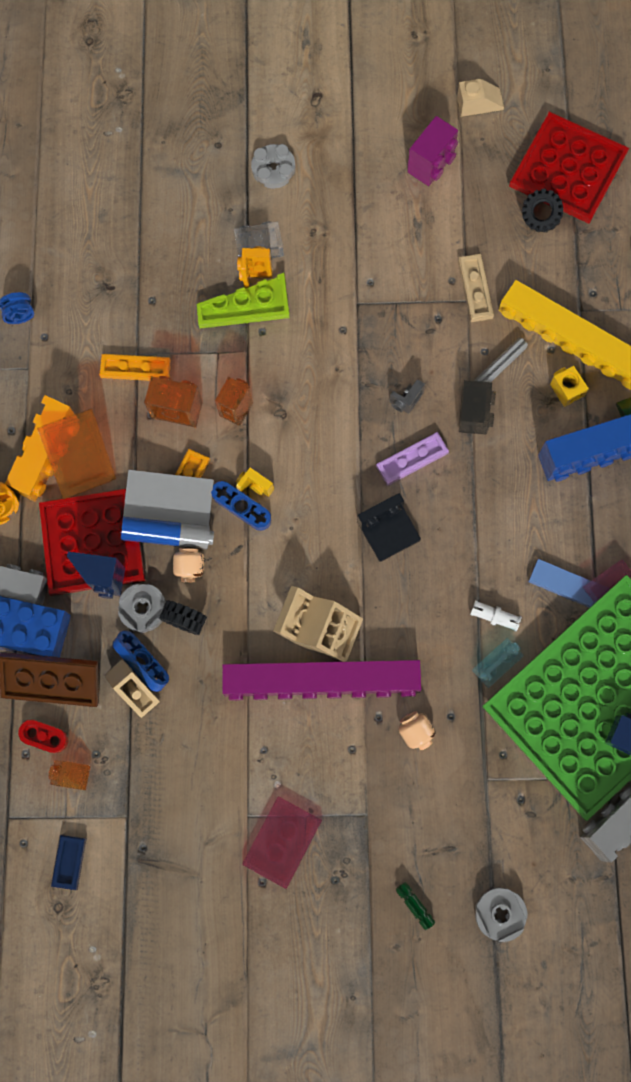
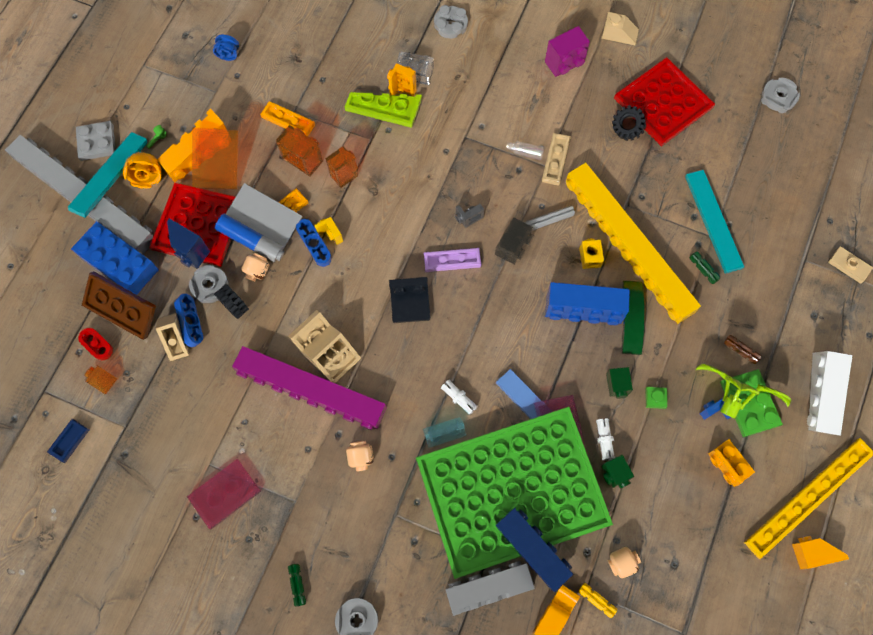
camera: 20 degrees right, 5 degrees down
(438, 290) = (526, 150): none -> clear cylinder

